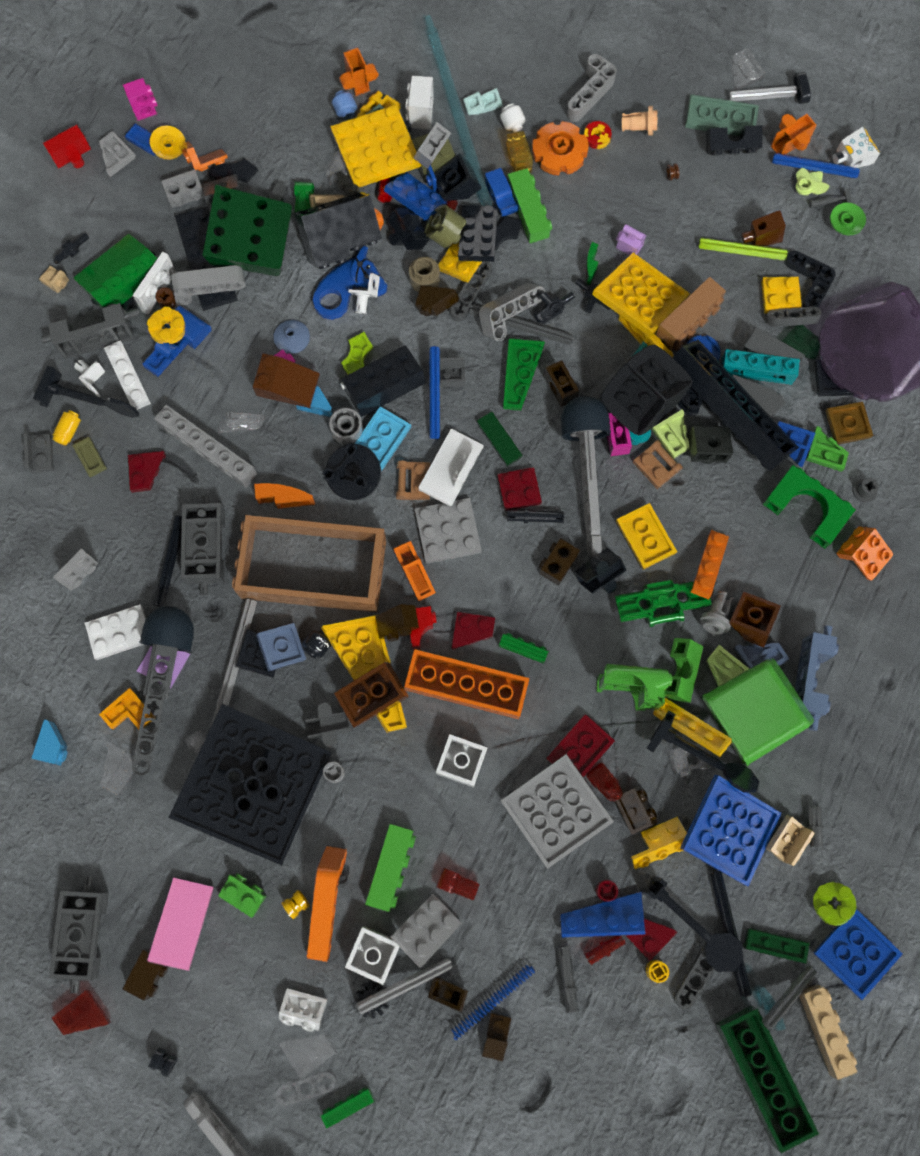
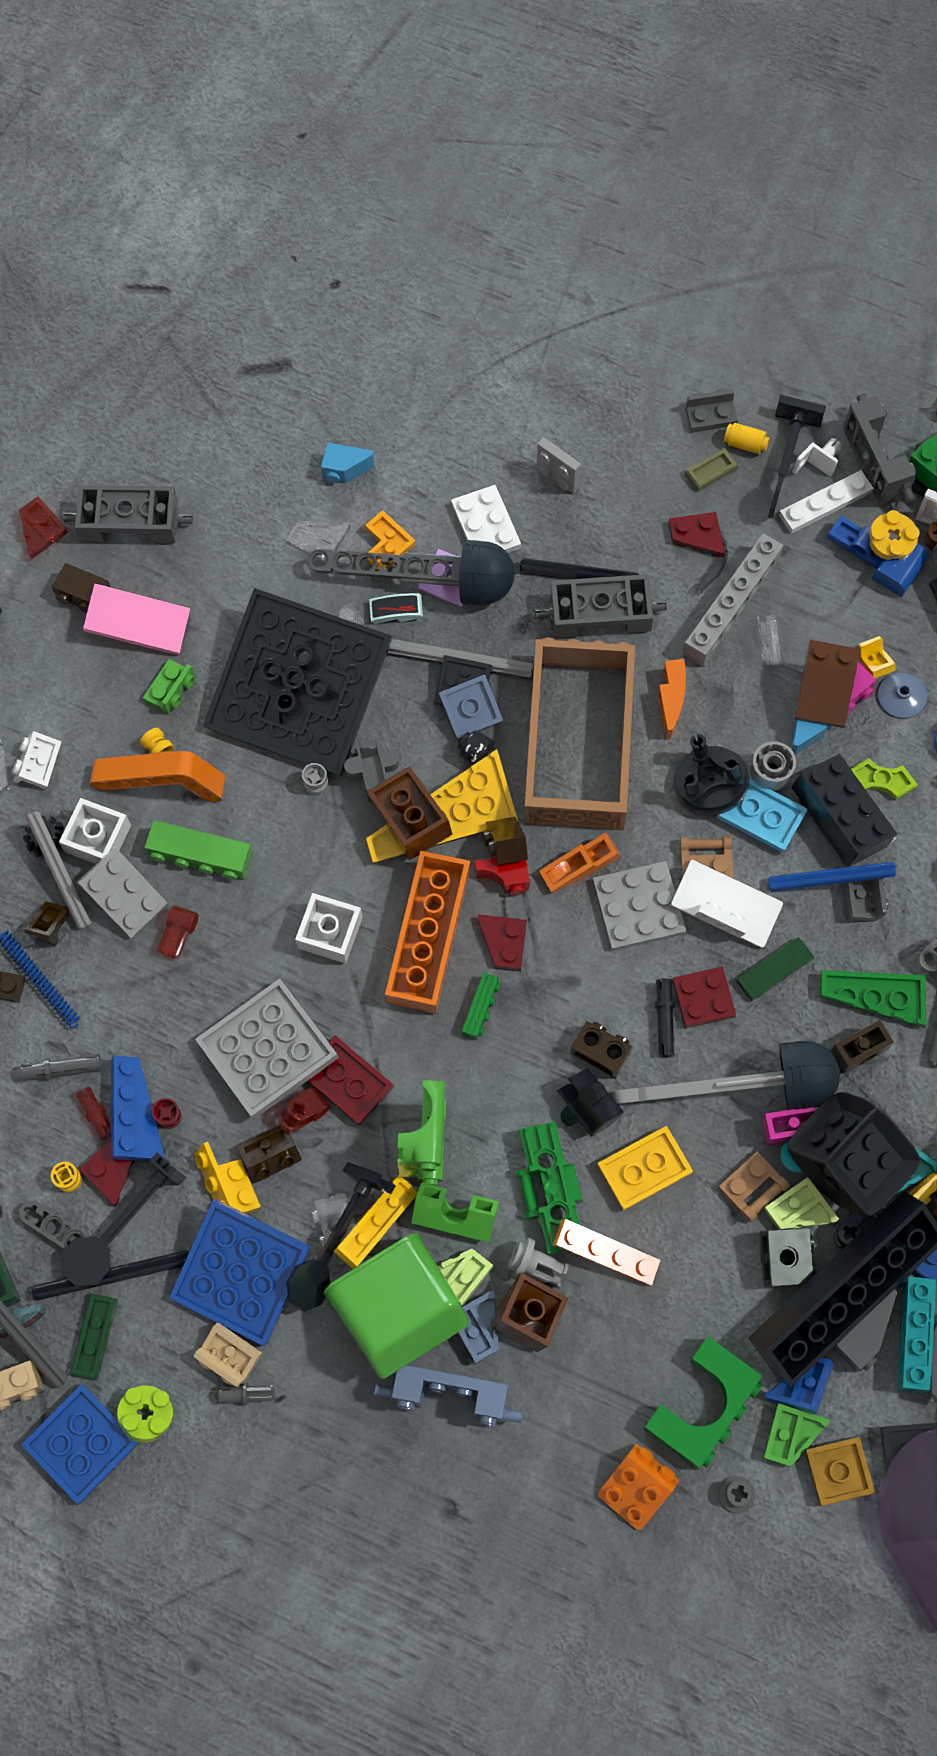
camera: 90 degrees right, 5 degrees down
(188, 705) = (397, 606): none -> slope
(266, 346) = (874, 658): none -> yellow bracket

